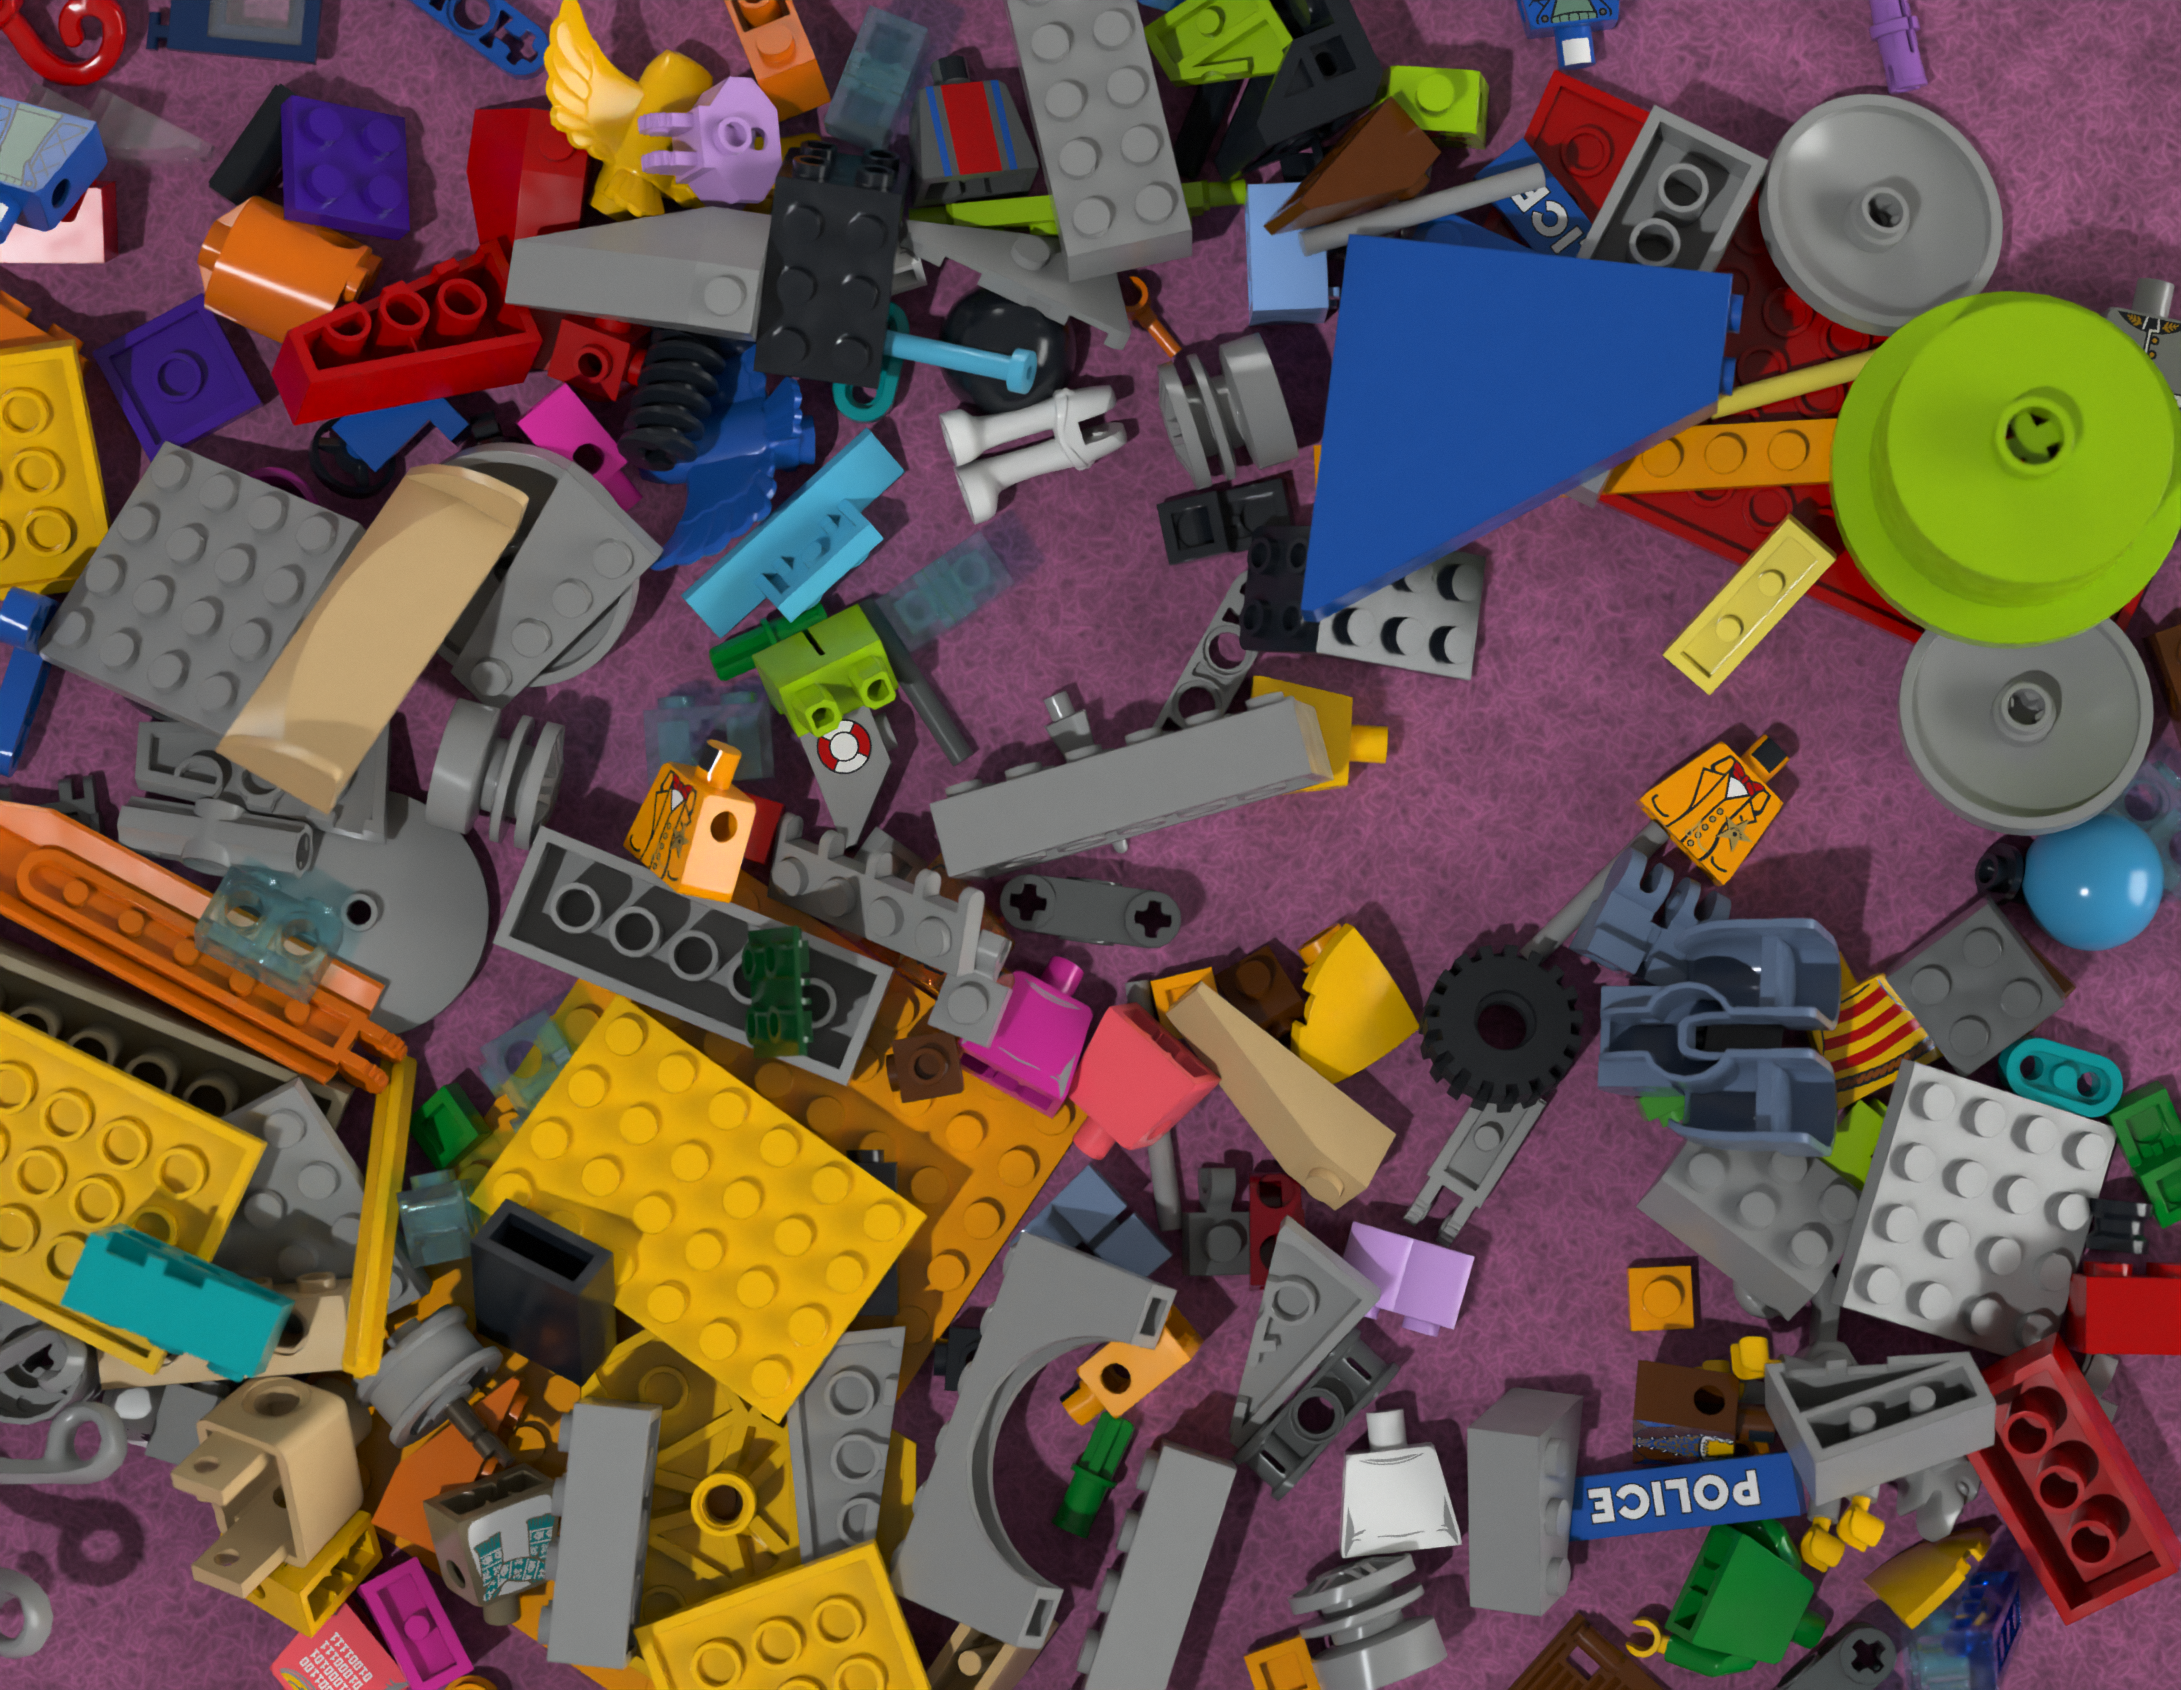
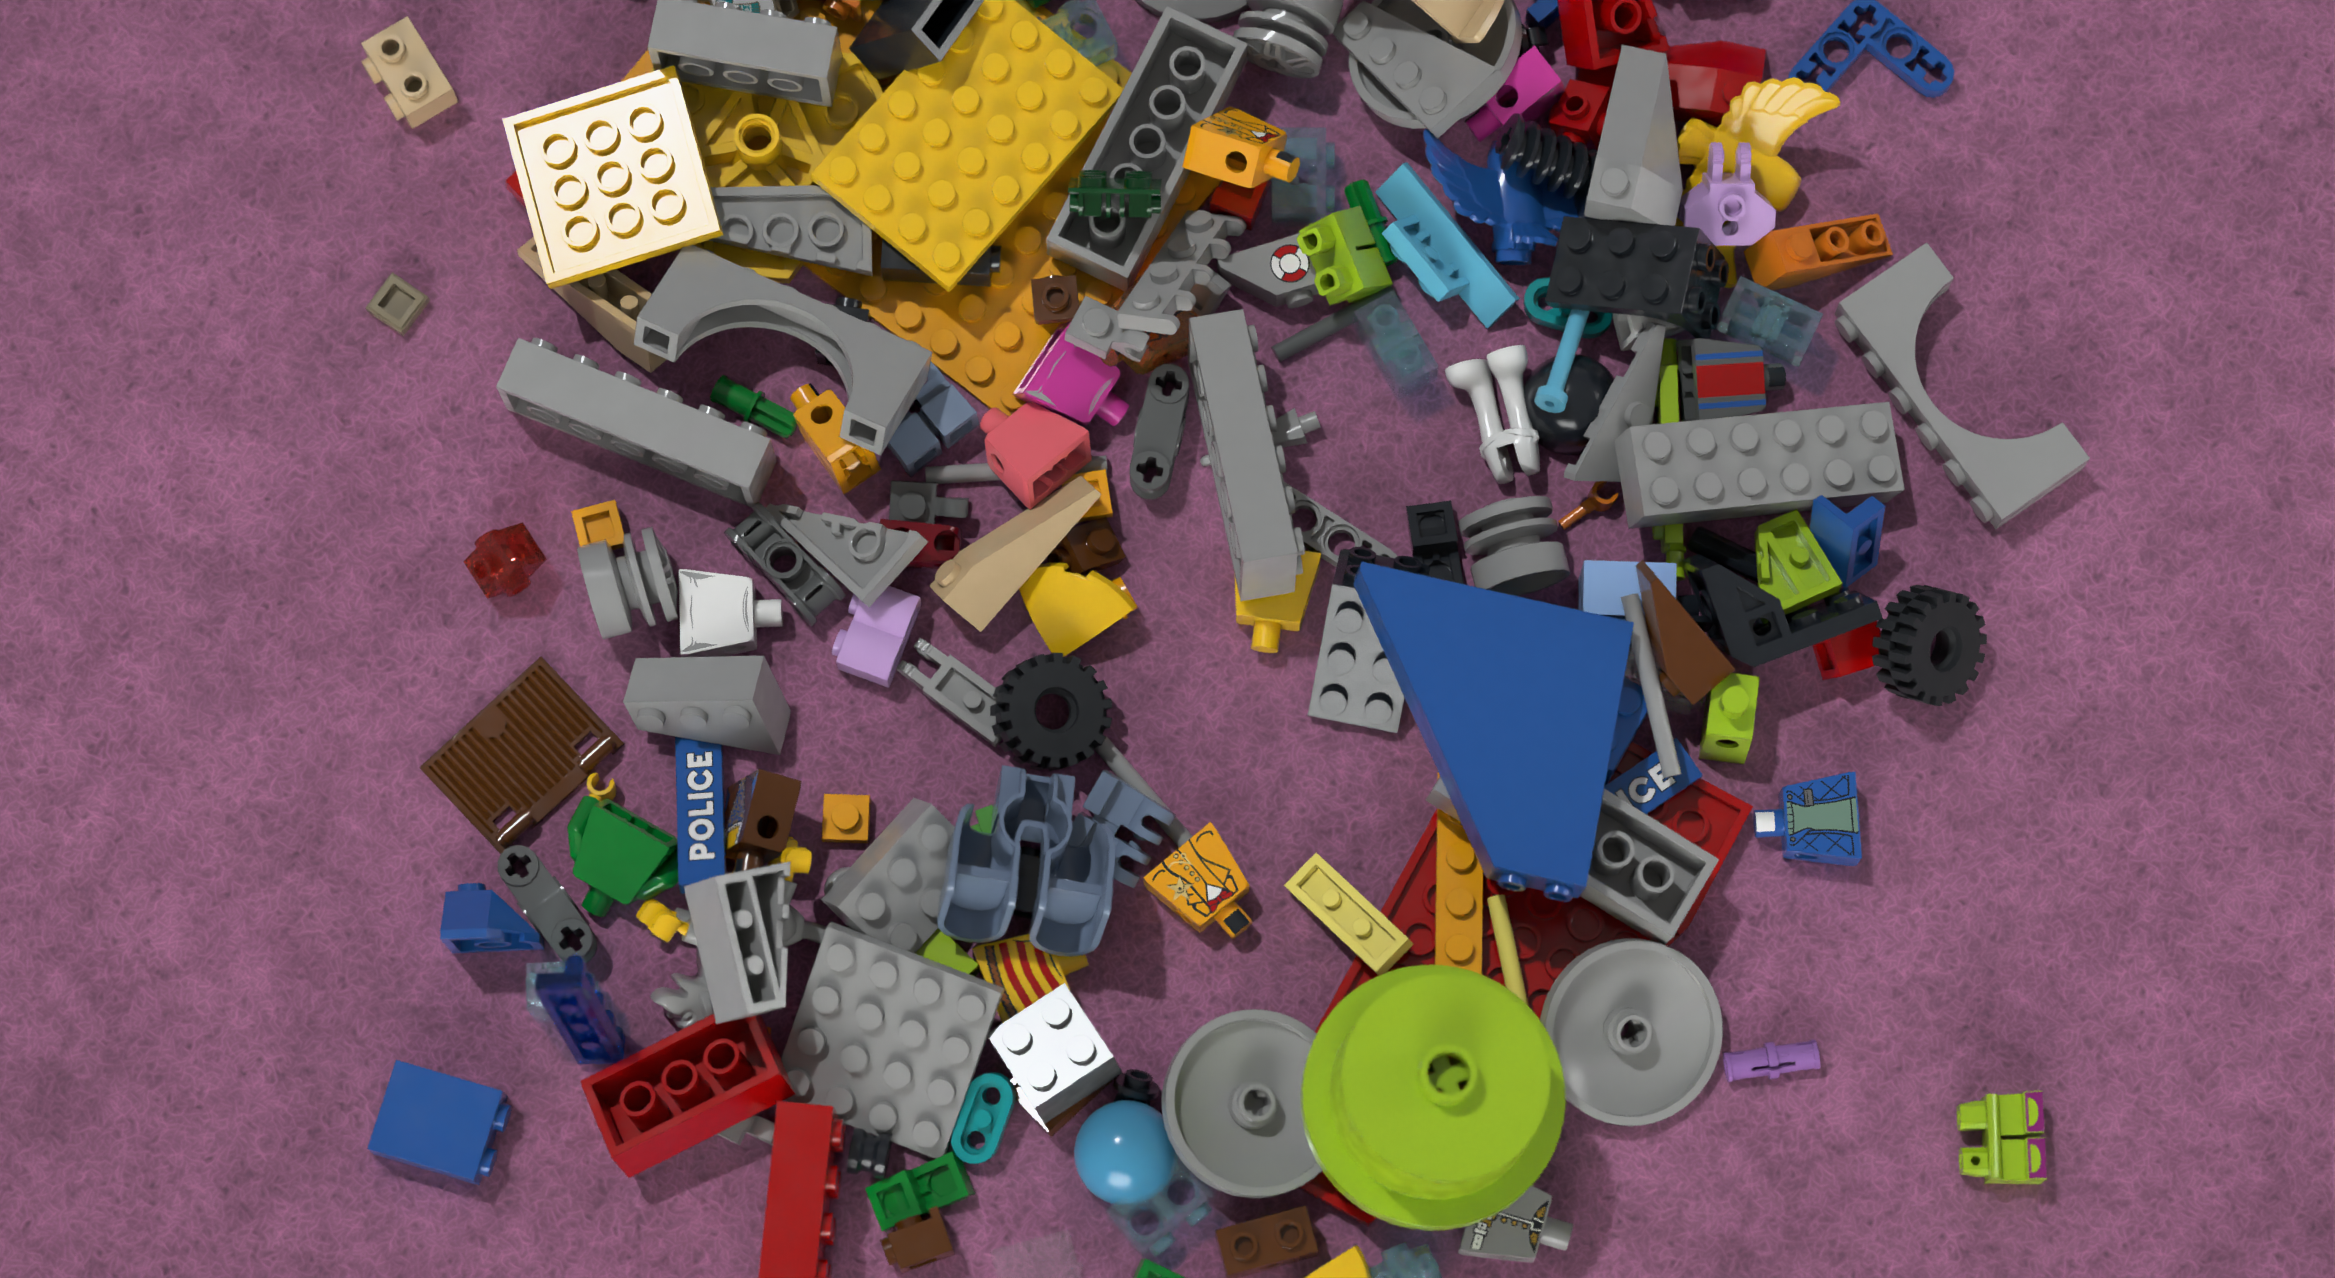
camera: 95 degrees right, 10 degrees down
(1927, 1574) = (629, 988): yellow brick -> none

